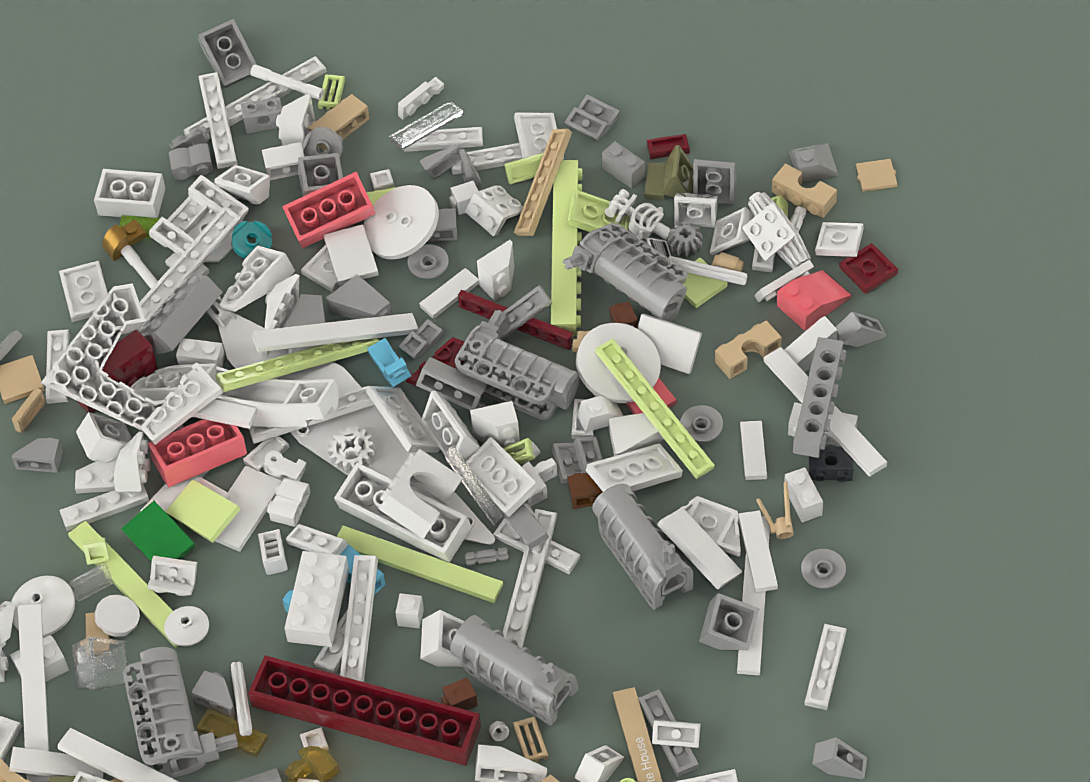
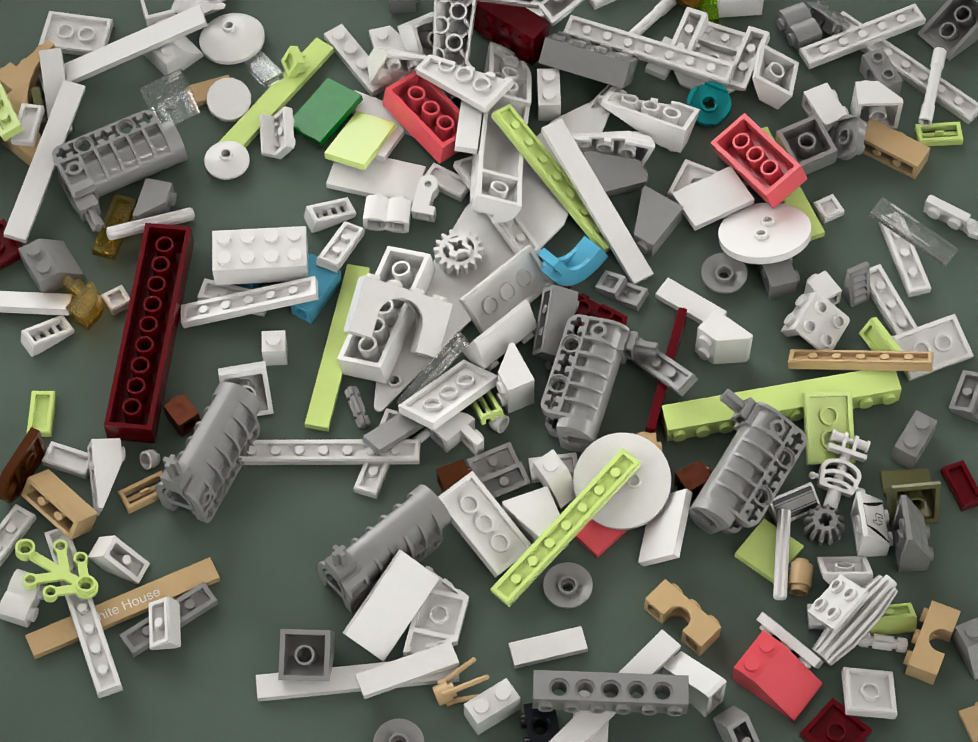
camera: 75 degrees right, 5 degrees up
(441, 161) = (859, 251): light grey slope -> none

